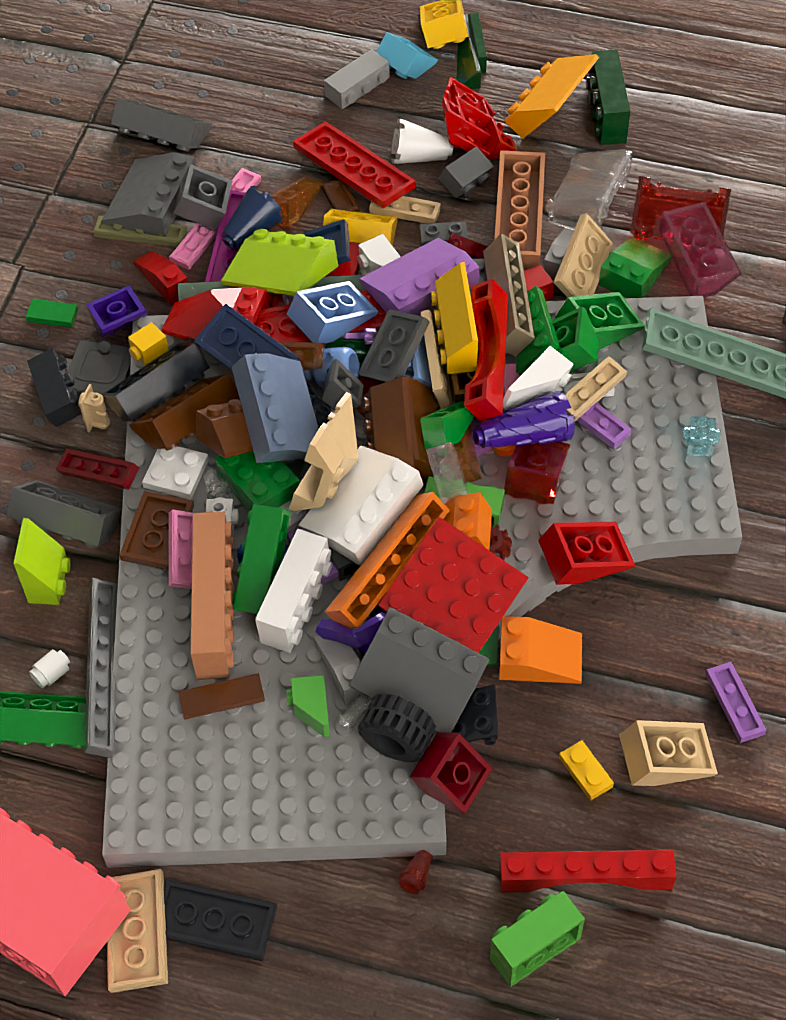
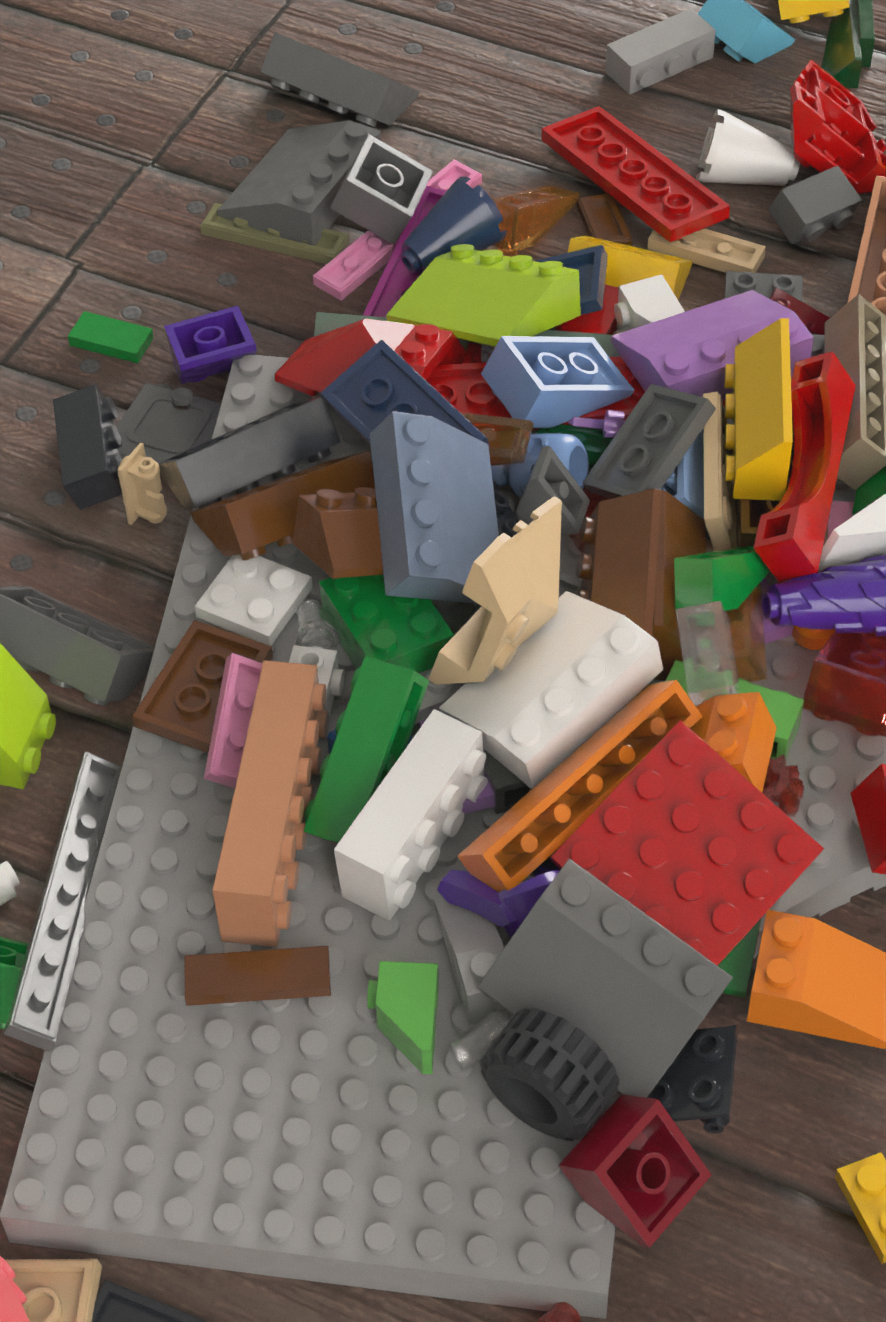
camera: 10 degrees right, 5 degrees down
(97, 468) = (129, 578): dark red plate -> none
(147, 344) = (247, 394): yellow brick -> none
(162, 274) = (294, 299): red slope -> none

